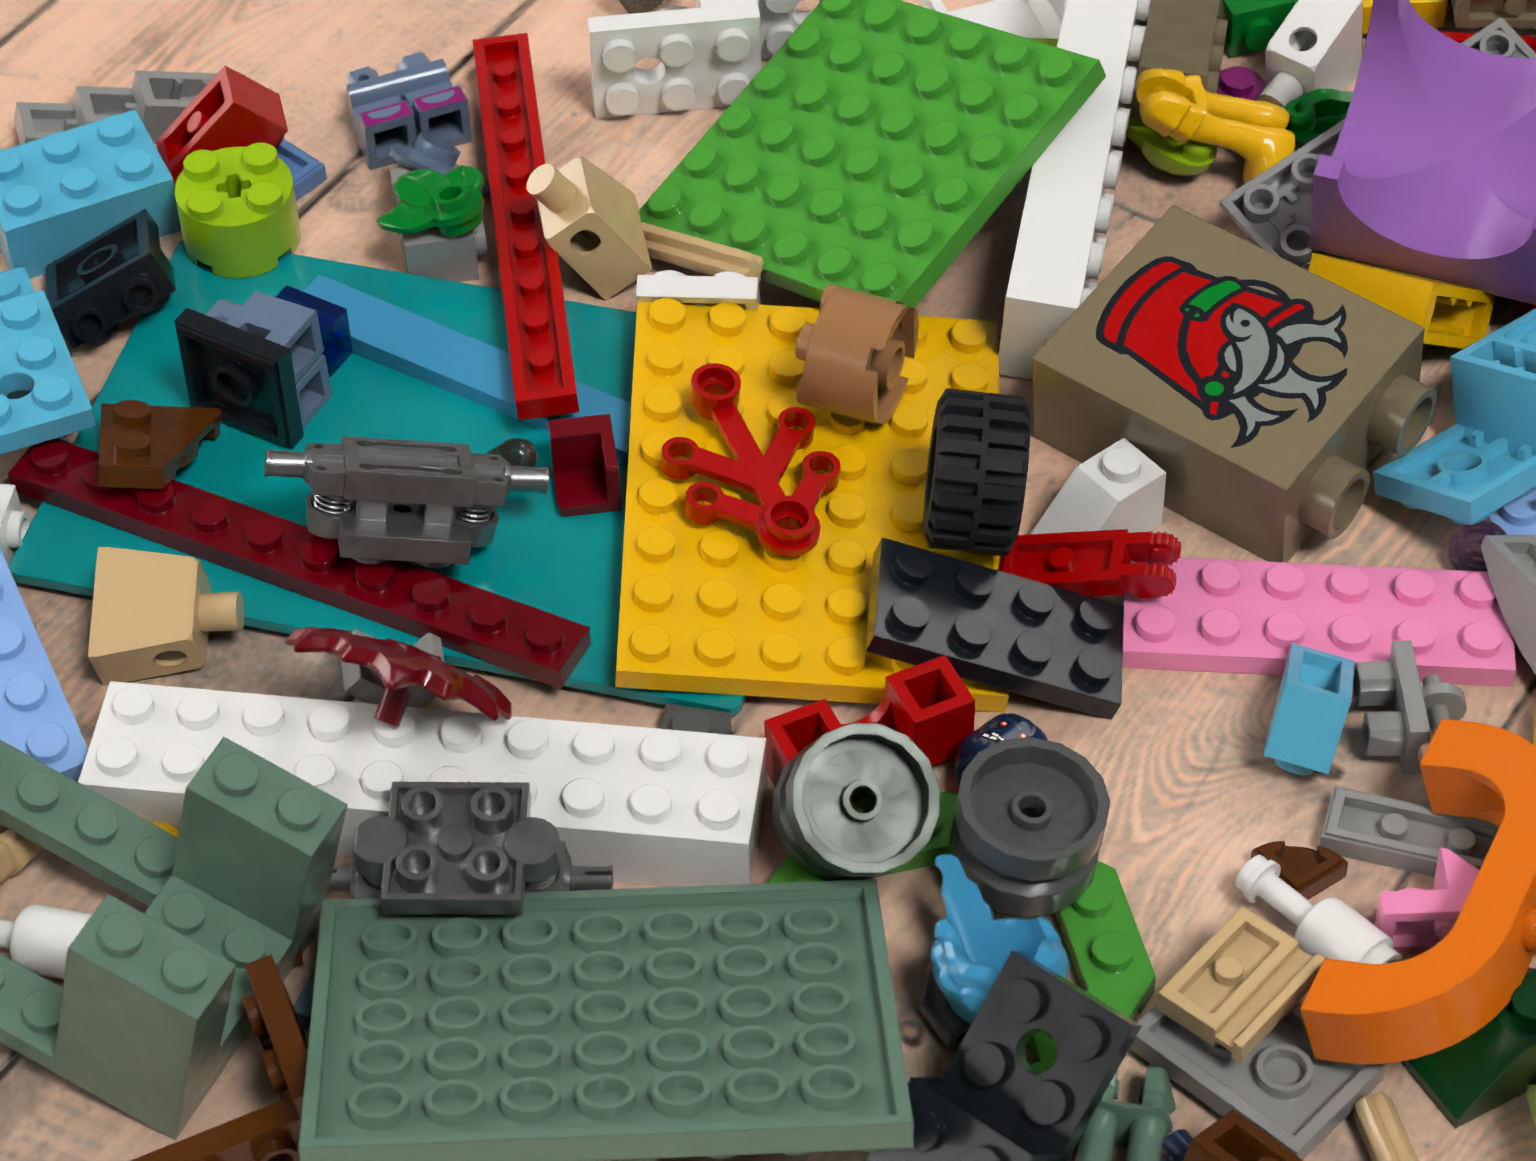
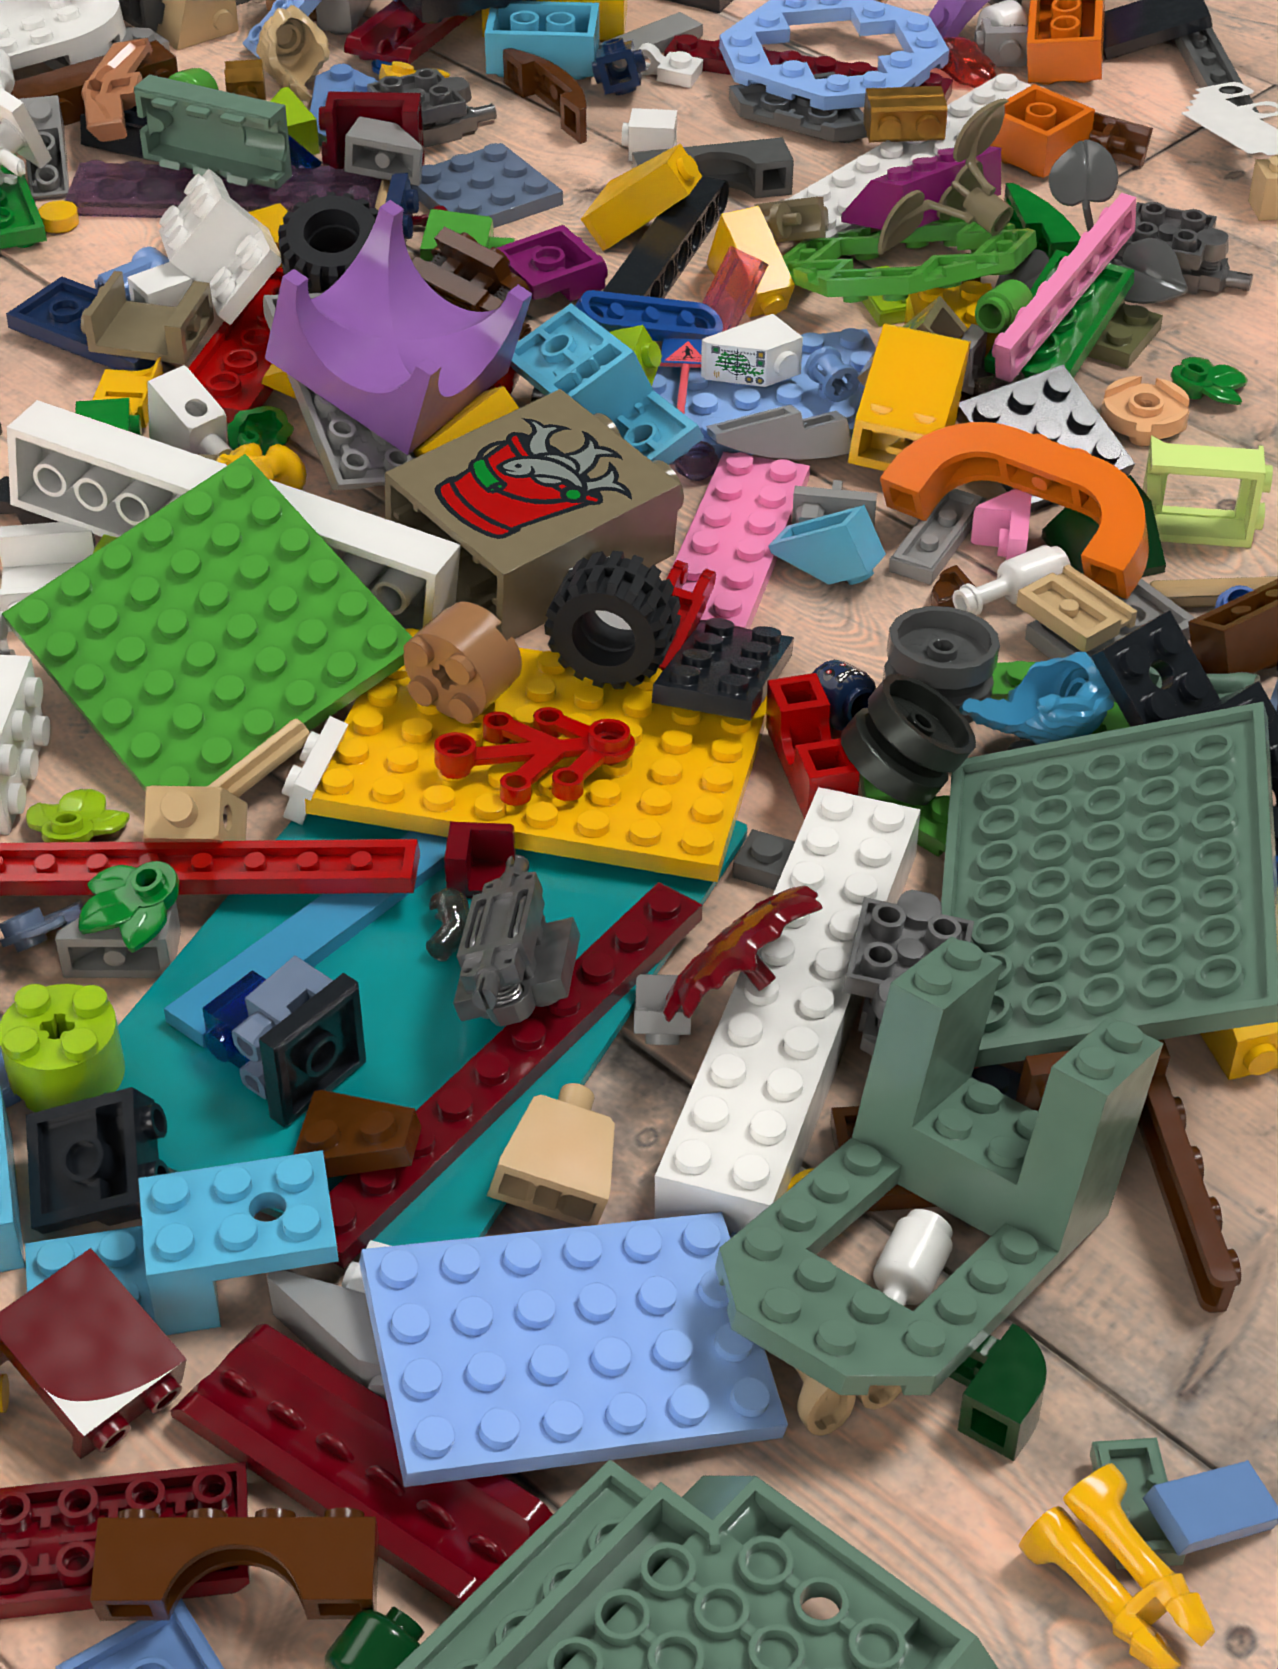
camera: 80 degrees left, 5 degrees down
(615, 148) = (76, 817): none -> lime plate

